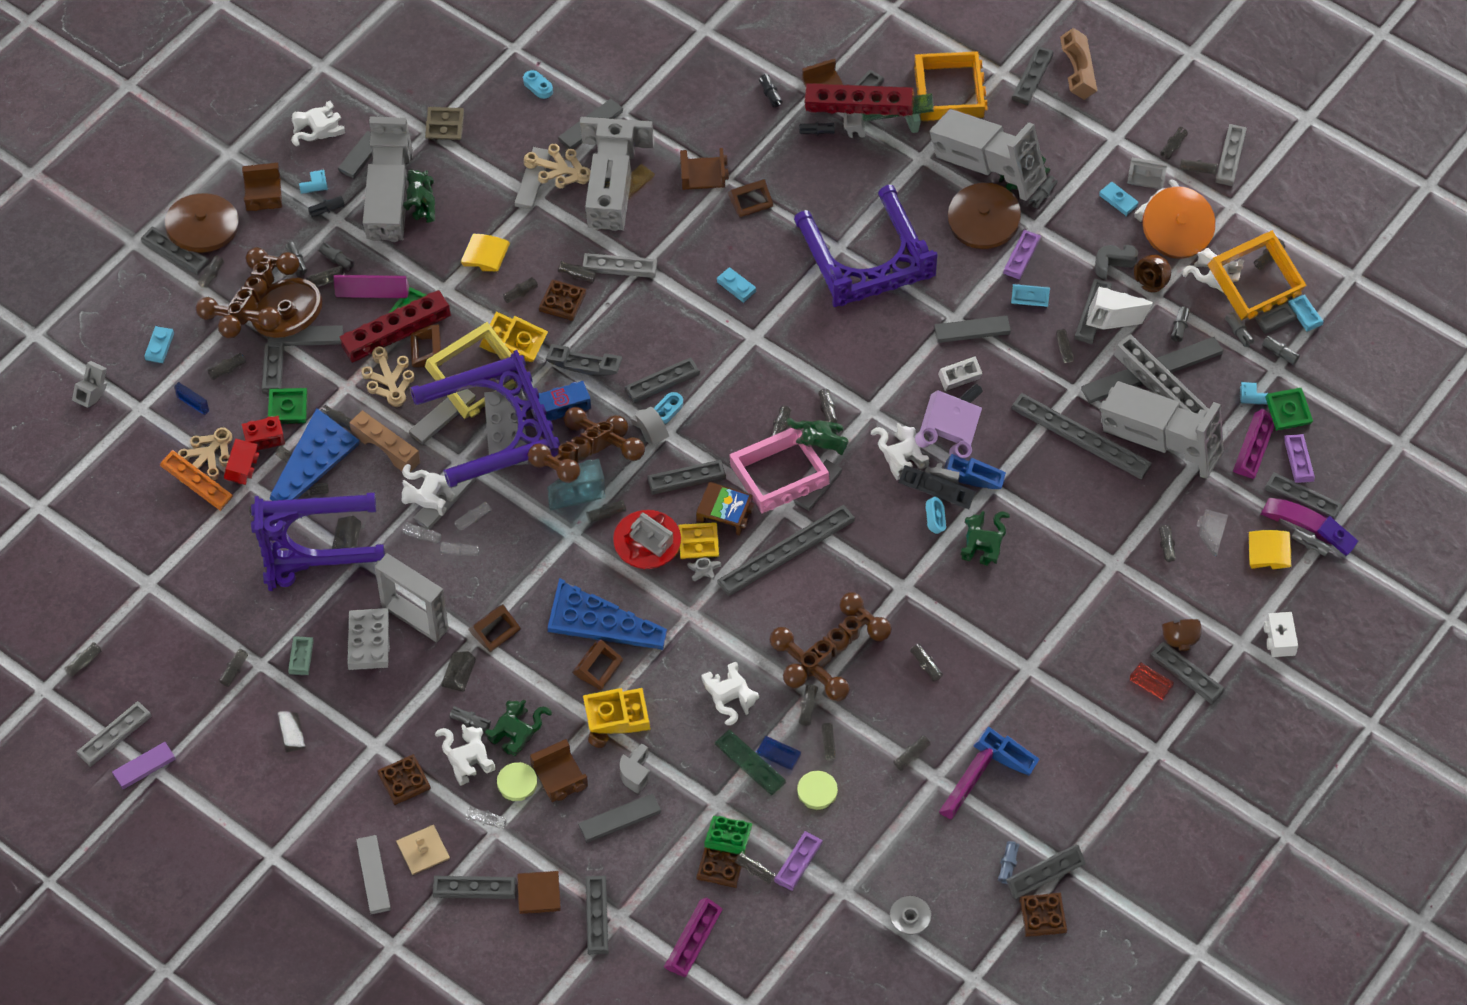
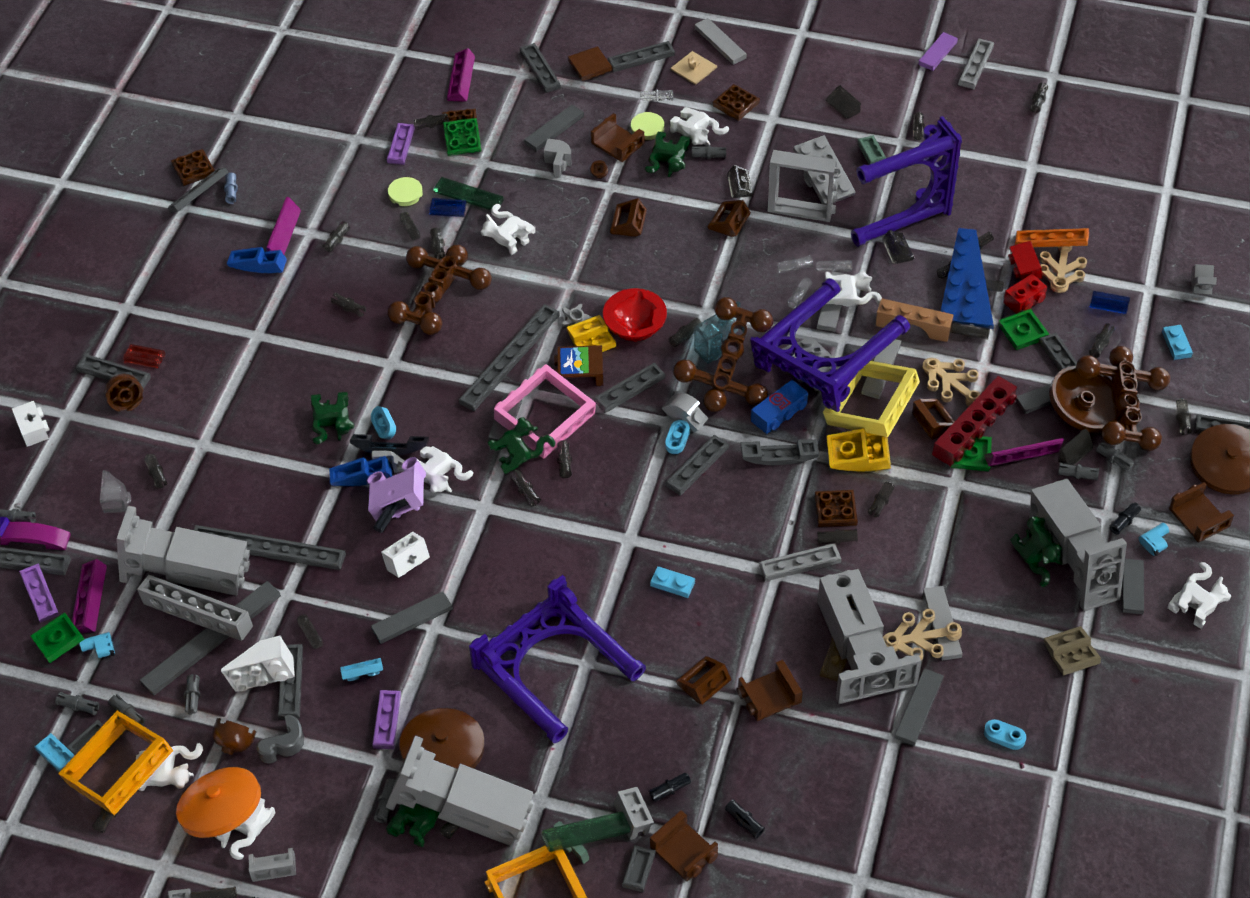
camera: 160 degrees right, 5 degrees down
(485, 252) = (939, 525): yellow slope -> none
(595, 618) = (656, 249): blue wing -> none
(617, 711) = (592, 187): yellow slope -> none
(651, 534) = (629, 310): light grey hinge -> none
(852, 93) = (630, 809): dark red brick -> none
(912, 907) = (297, 130): light grey dish -> none
(1118, 198) = (298, 824): medium azure plate -> none
(1270, 549) = (54, 497): yellow slope -> none

